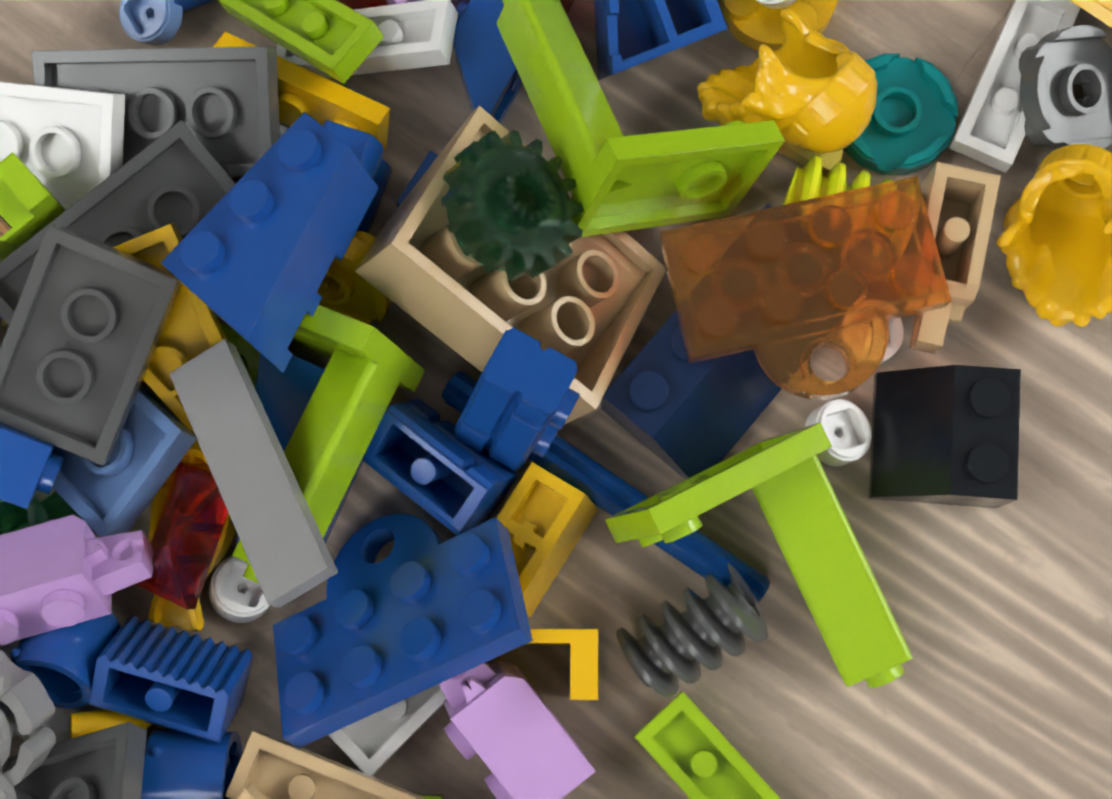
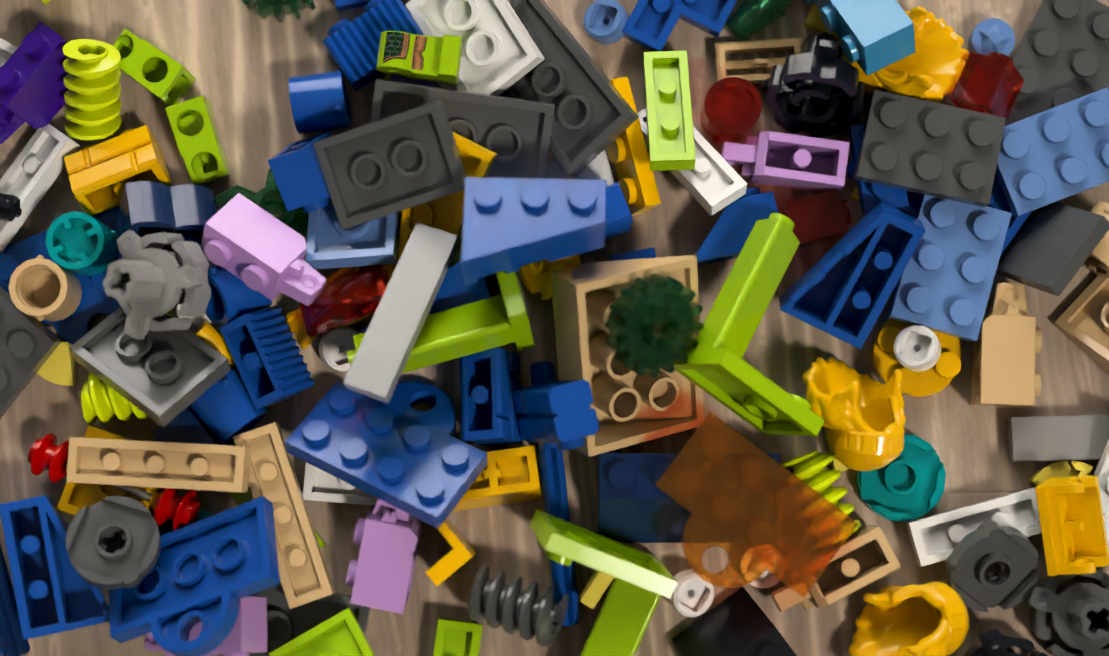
camera: 45 degrees right, 5 degrees up
(746, 524) = (595, 588): none -> light yellow tile

